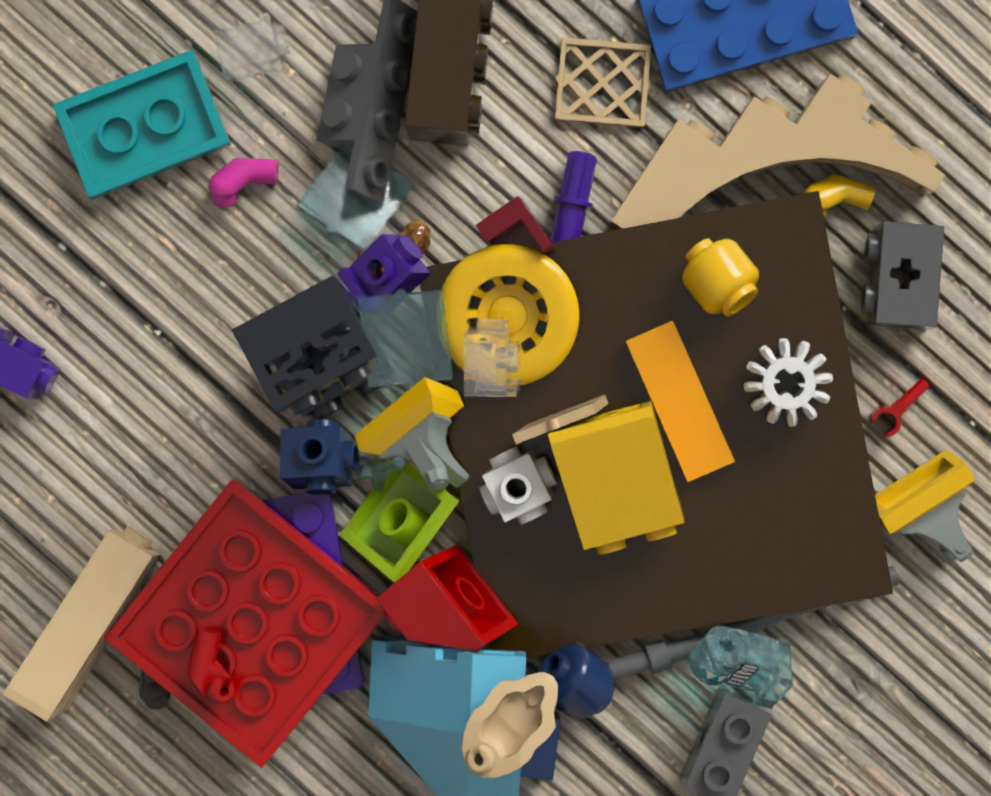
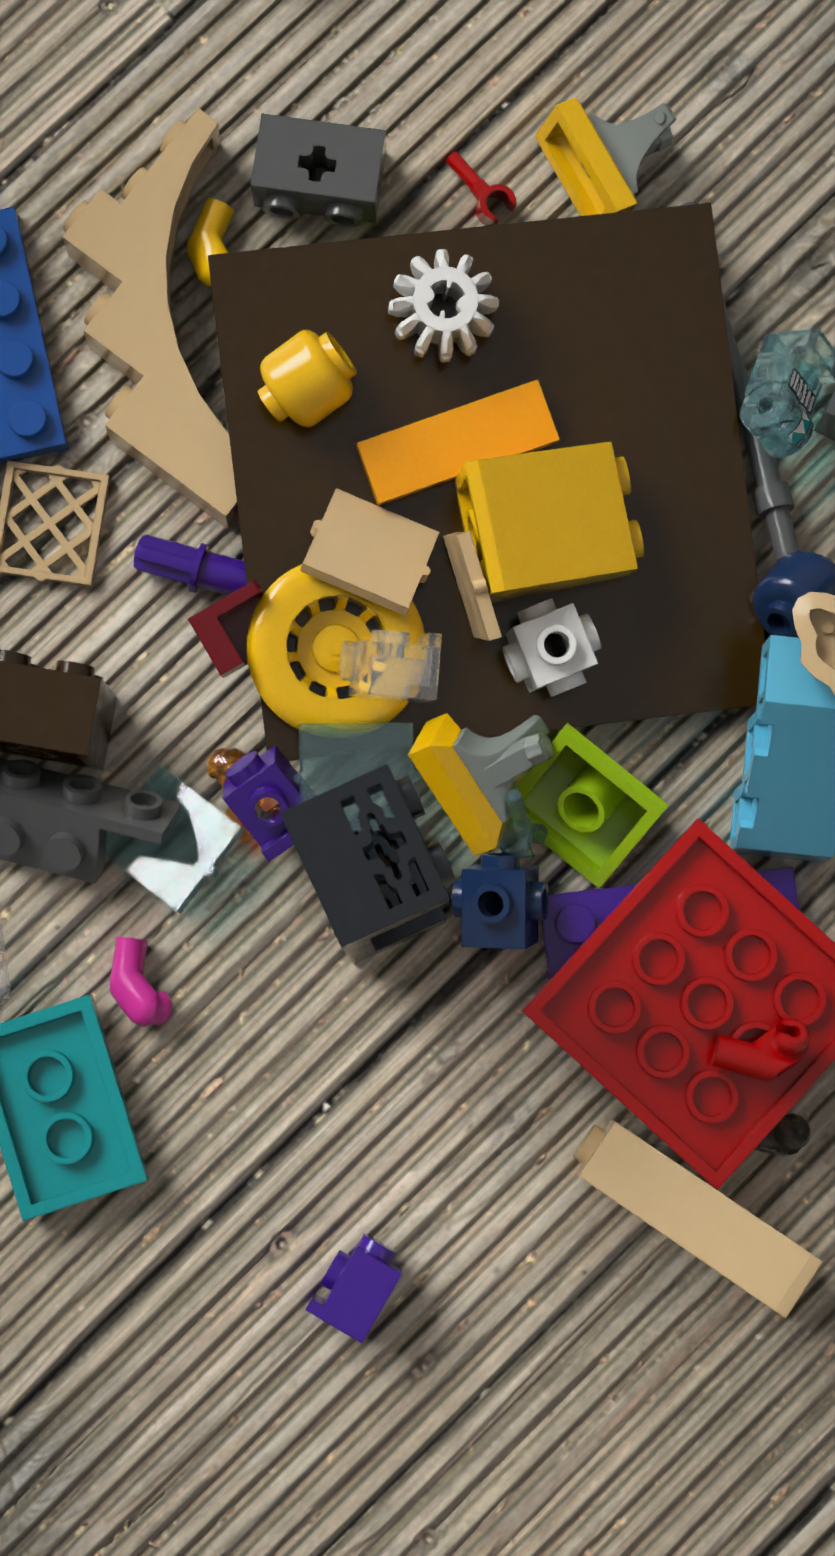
camera: 85 degrees left, 5 degrees down
(446, 604) = (698, 747): red slope -> none
(585, 336) = (370, 551): none -> tan piece

